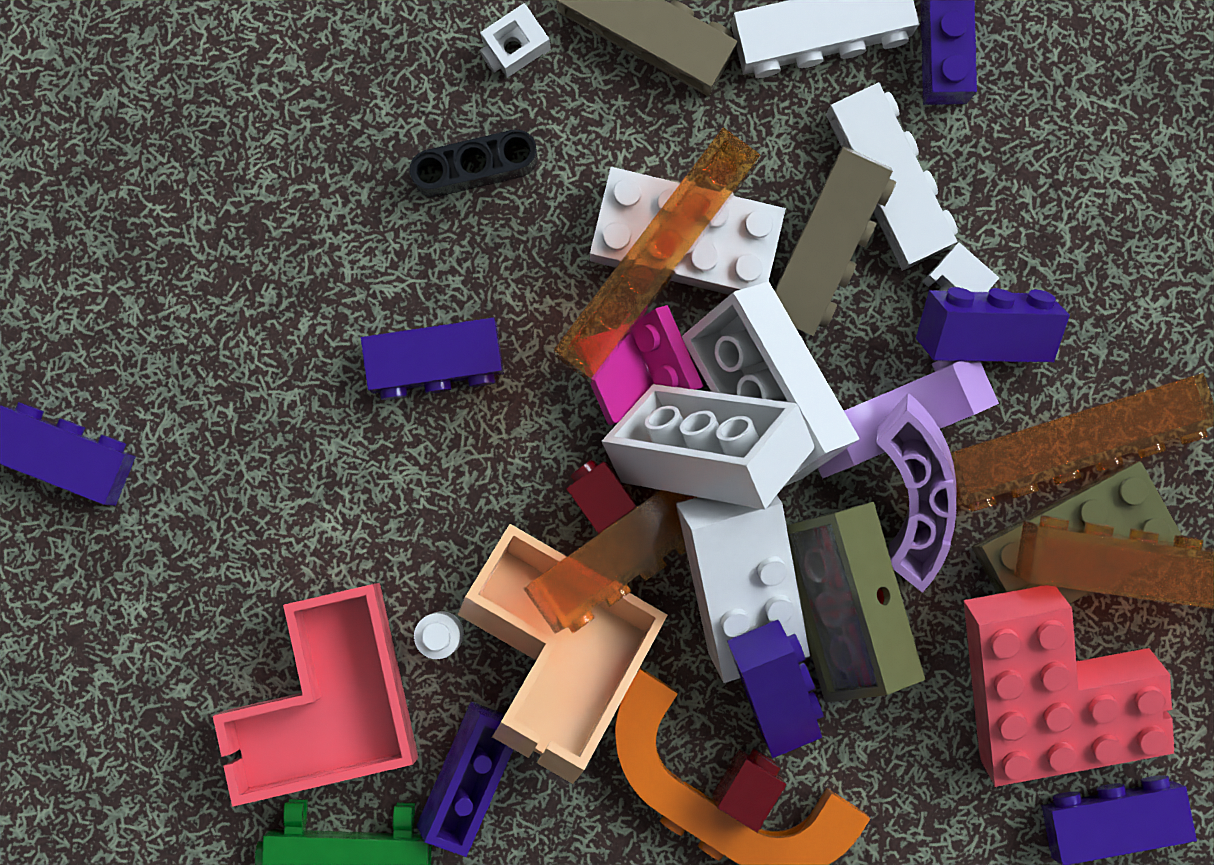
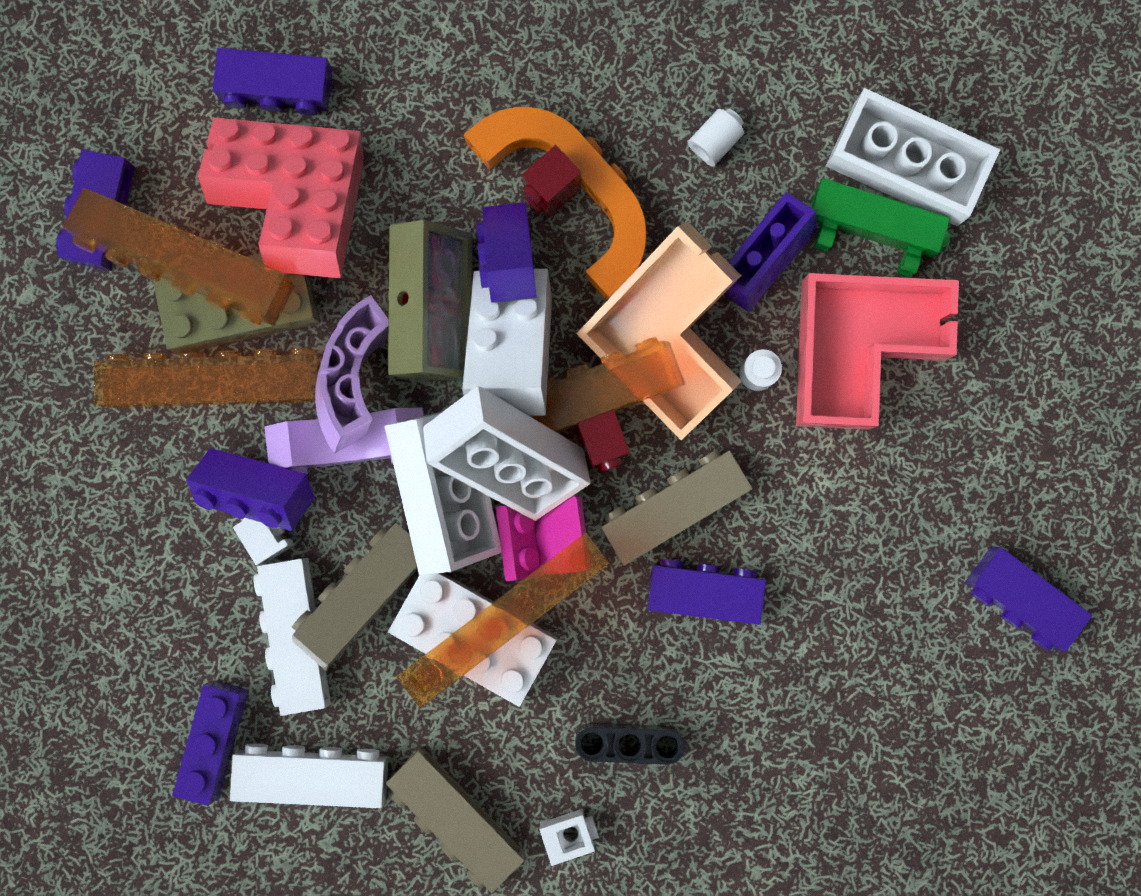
camera: 160 degrees left, 0 degrees up
(494, 445) = (675, 507): none -> dark tan brick

